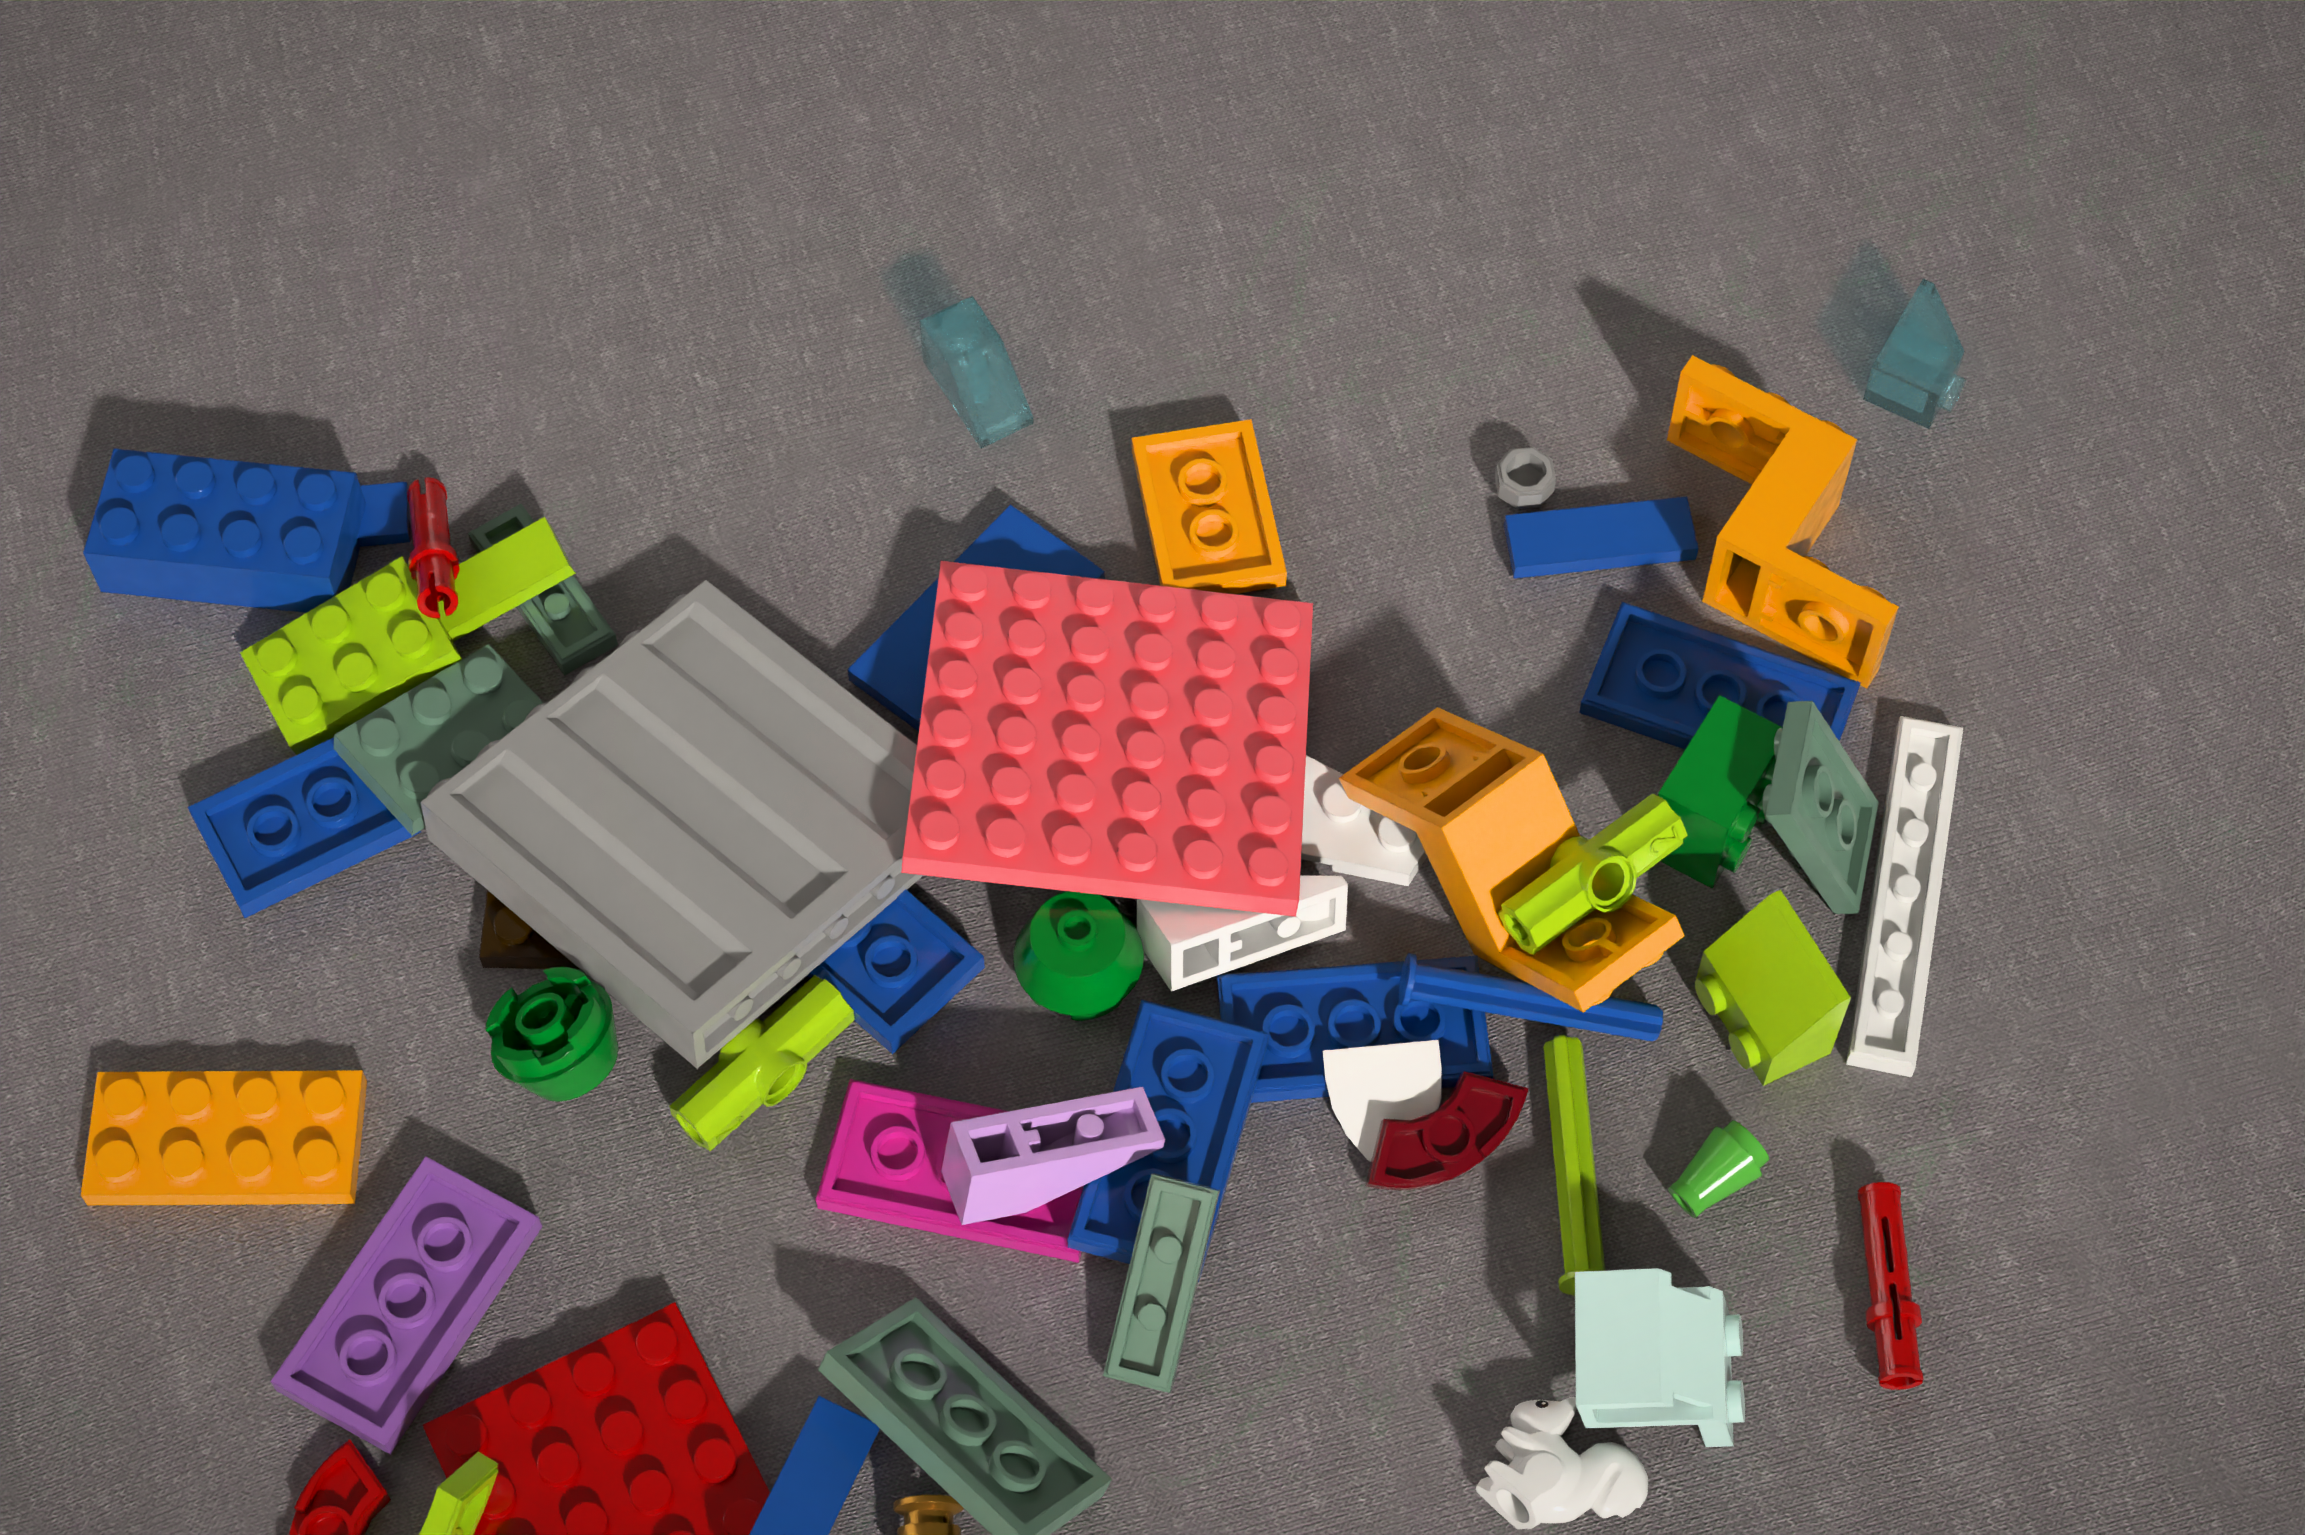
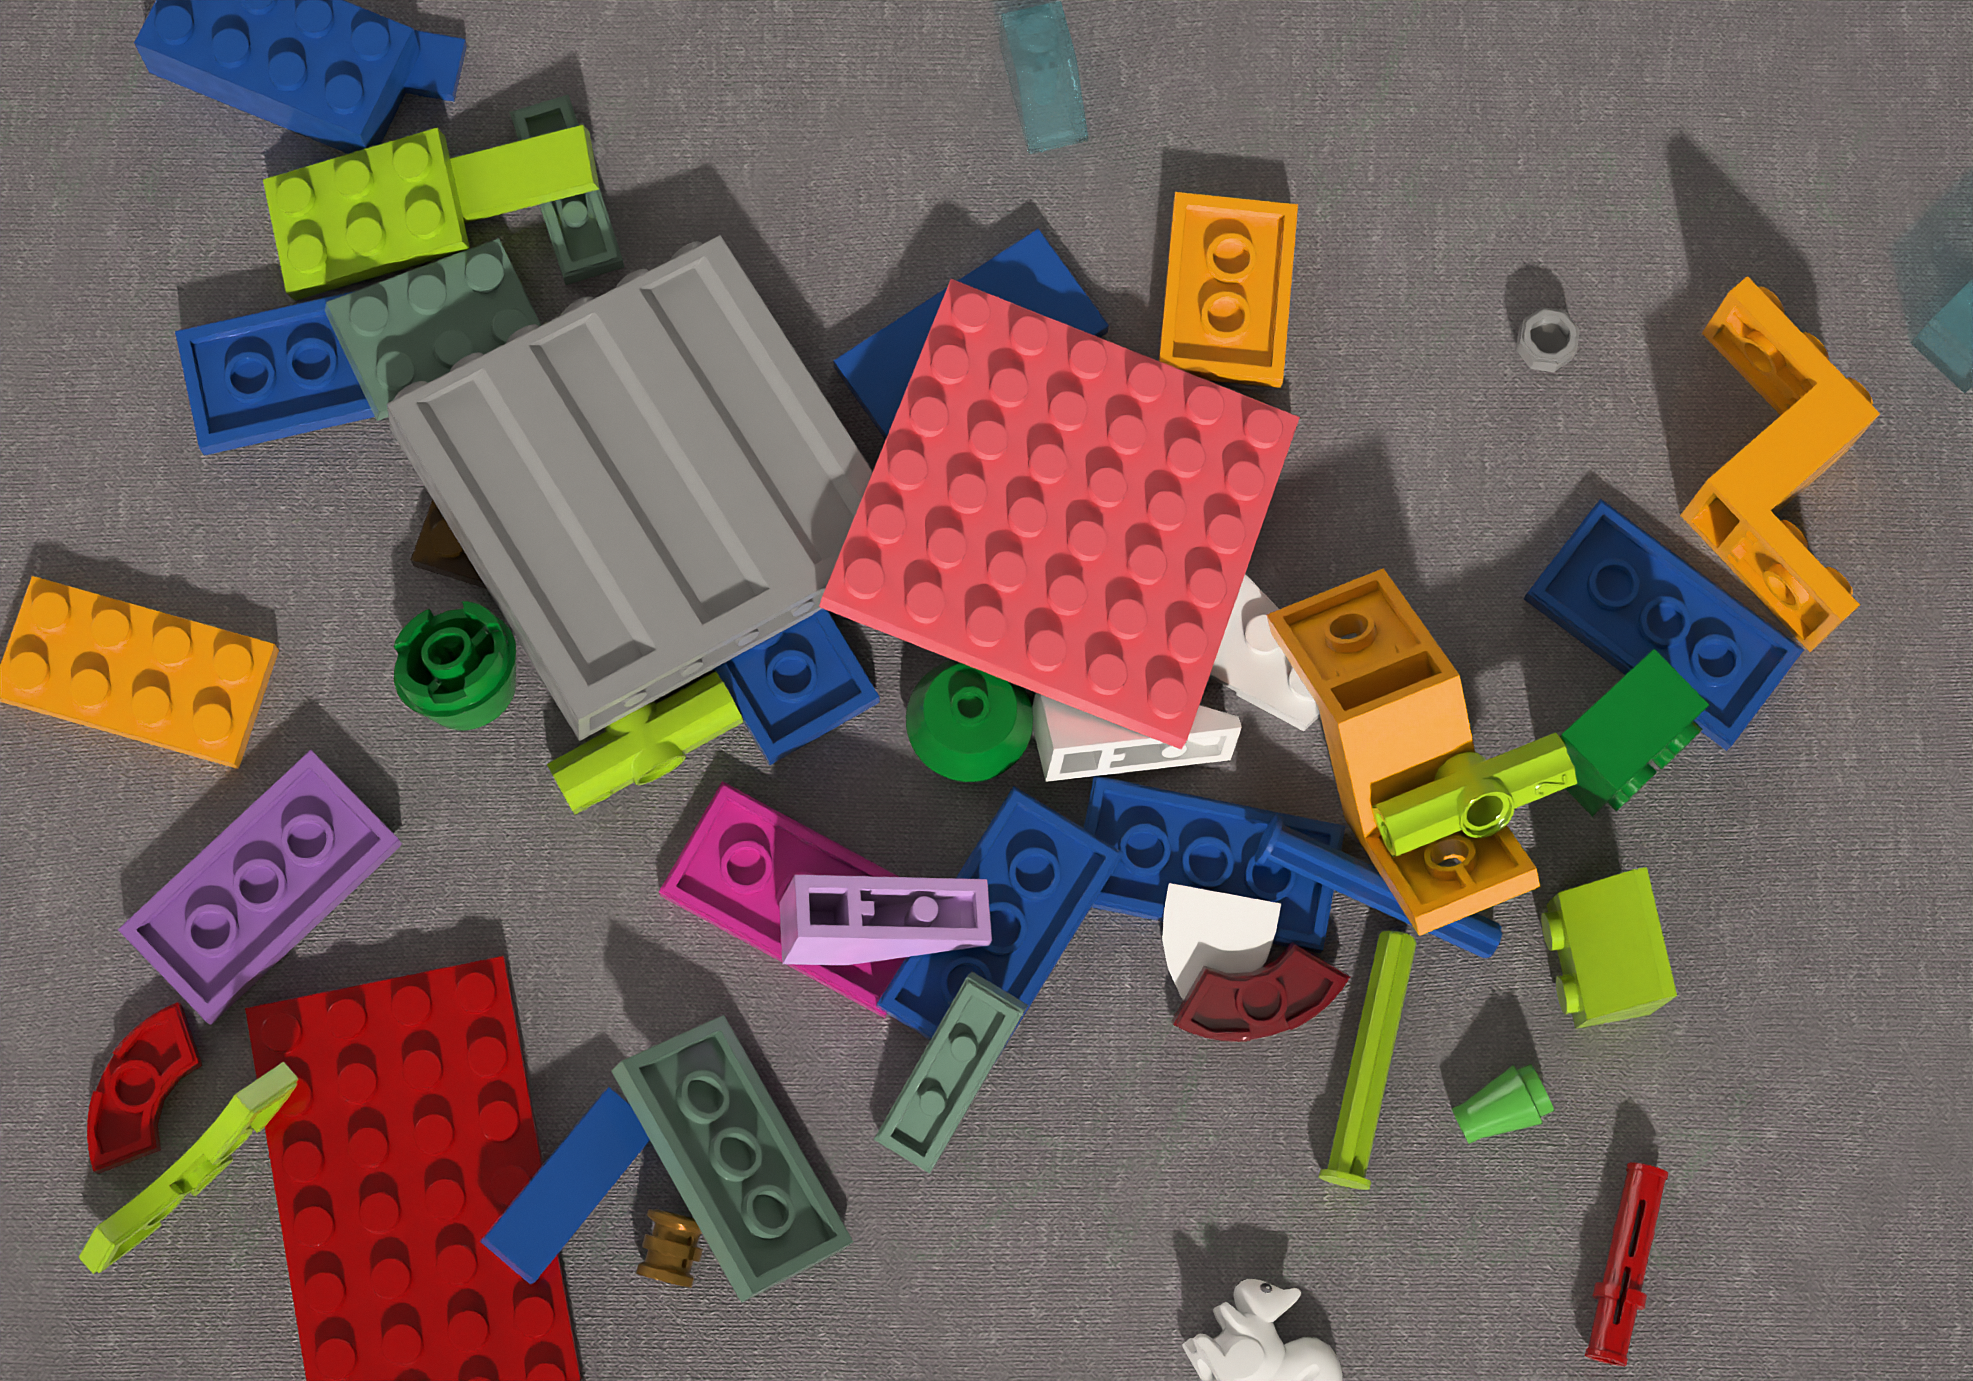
camera: 10 degrees right, 15 degrees up
(433, 559) = (465, 140): red pin -> none
(1600, 537) = (1602, 422): blue tile -> none
(1656, 1354) = (1384, 1278): light aqua piece -> none
(1821, 807) = (1717, 783): sand green plate -> none
(1905, 897) = (1774, 878): white tile -> none

